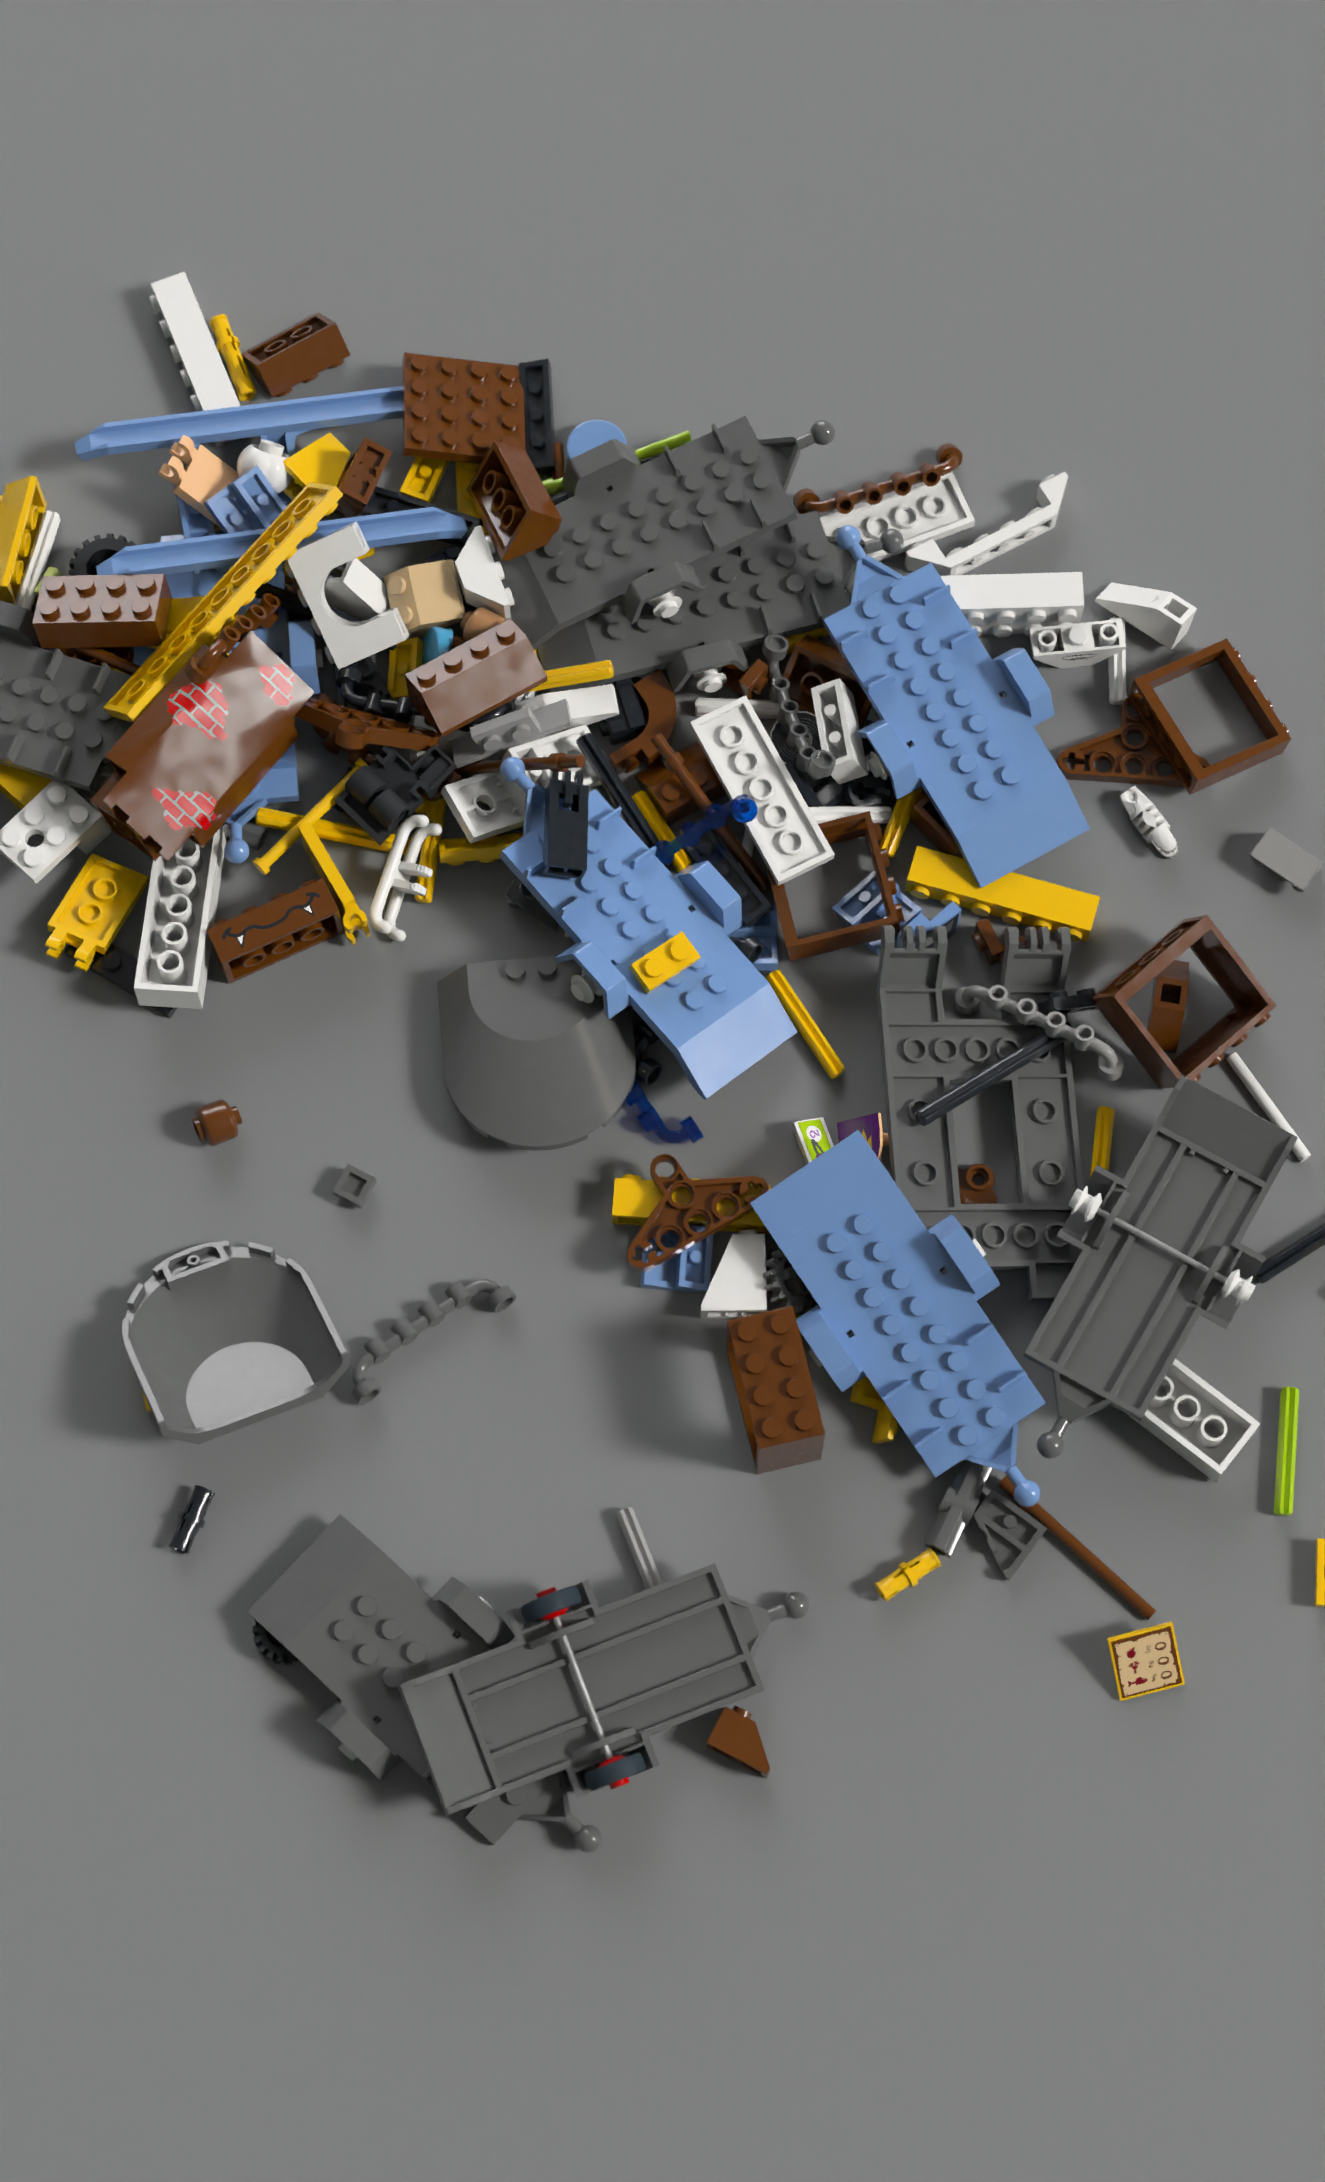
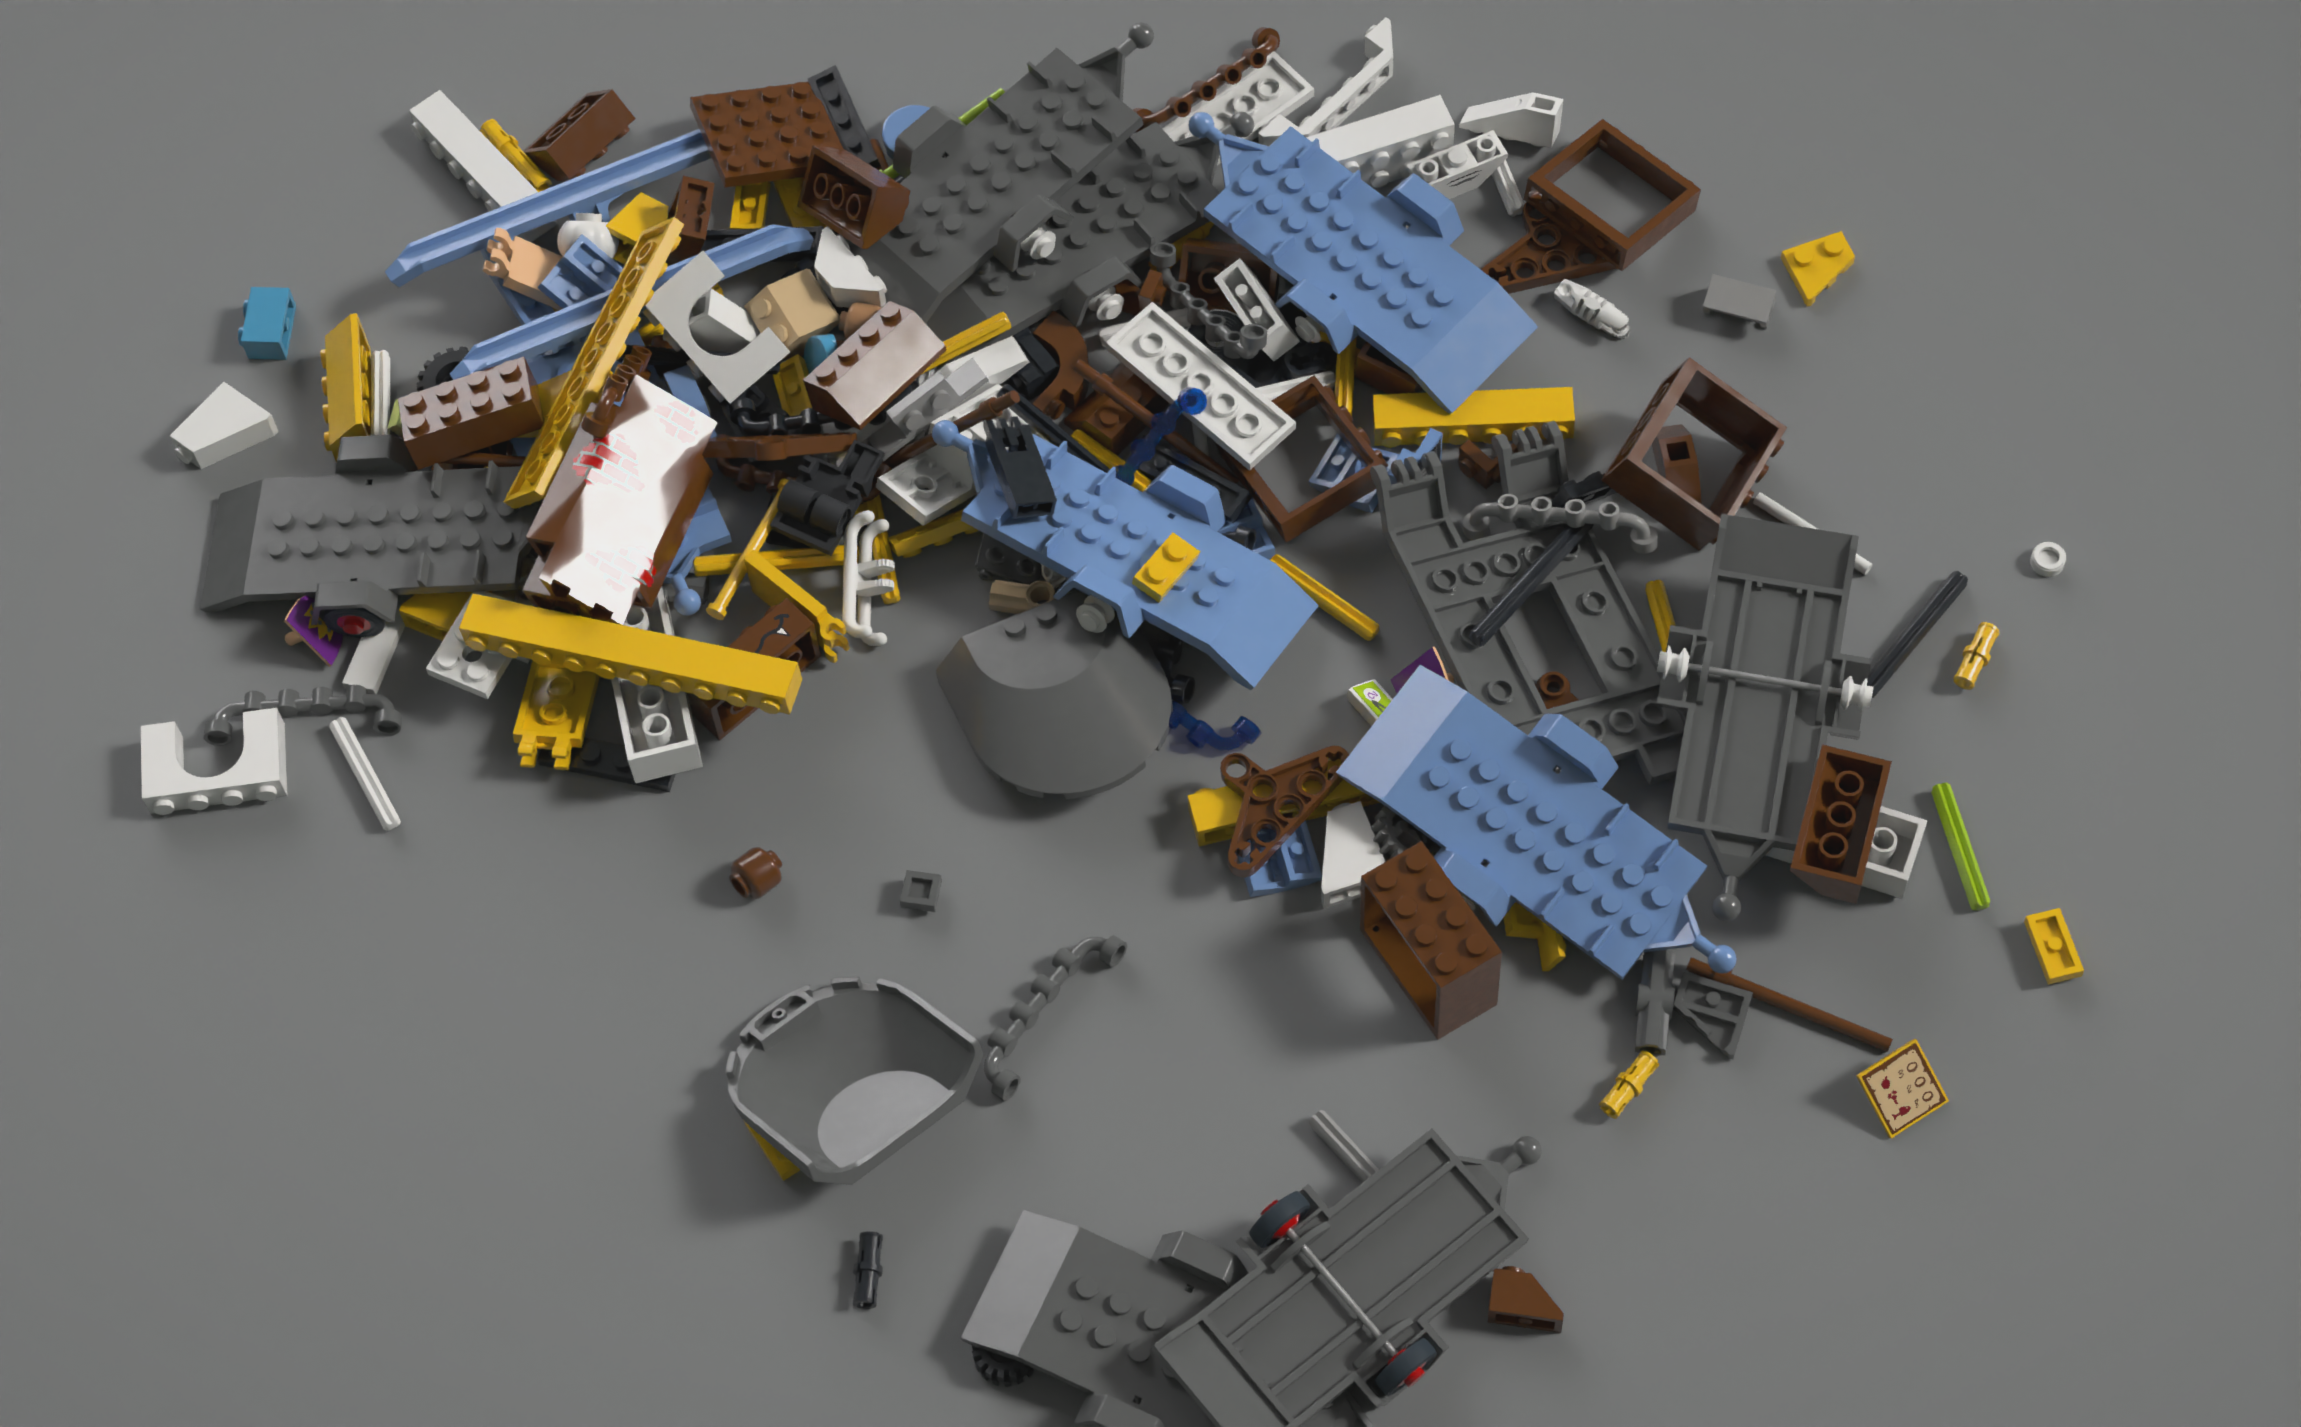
camera: 15 degrees left, 10 degrees down
(167, 890) = (631, 654): none -> yellow brick
(534, 936) = (1019, 597): none -> tan piece
(1177, 1404) = (1840, 822): none -> reddish brown slope

